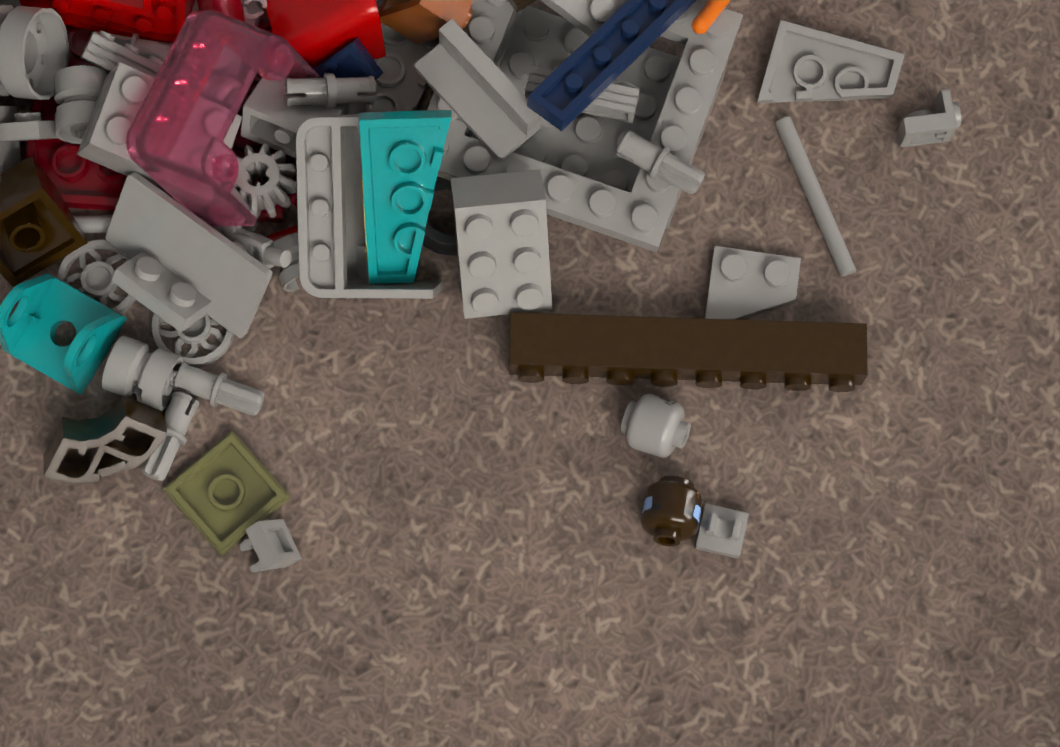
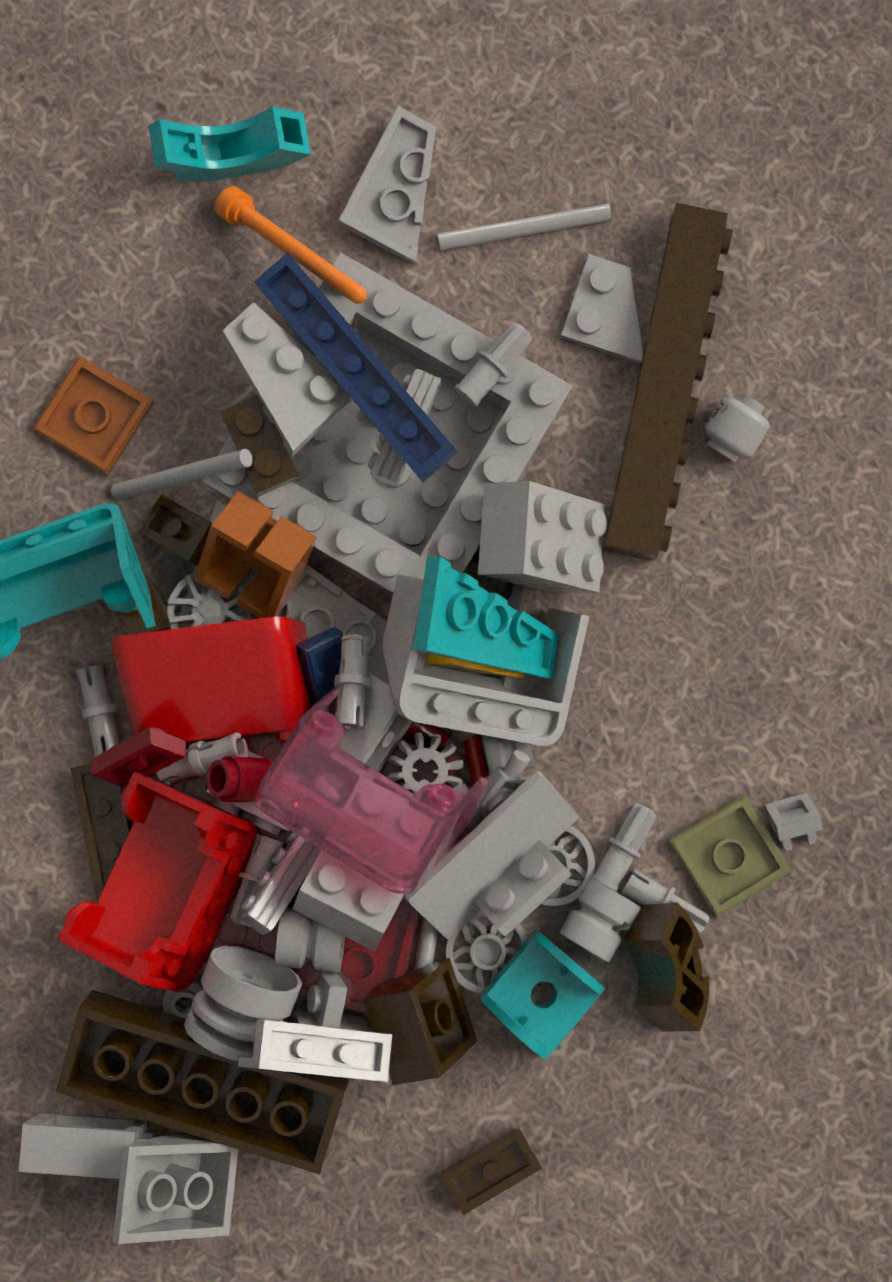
camera: 75 degrees left, 10 degrees up
(478, 92) = (384, 532): light grey panel -> none
(671, 510) = (823, 428): dark brown head -> none
(722, 531) = (846, 386): light grey tile -> none
(928, 128) = (474, 105): light grey bracket -> none

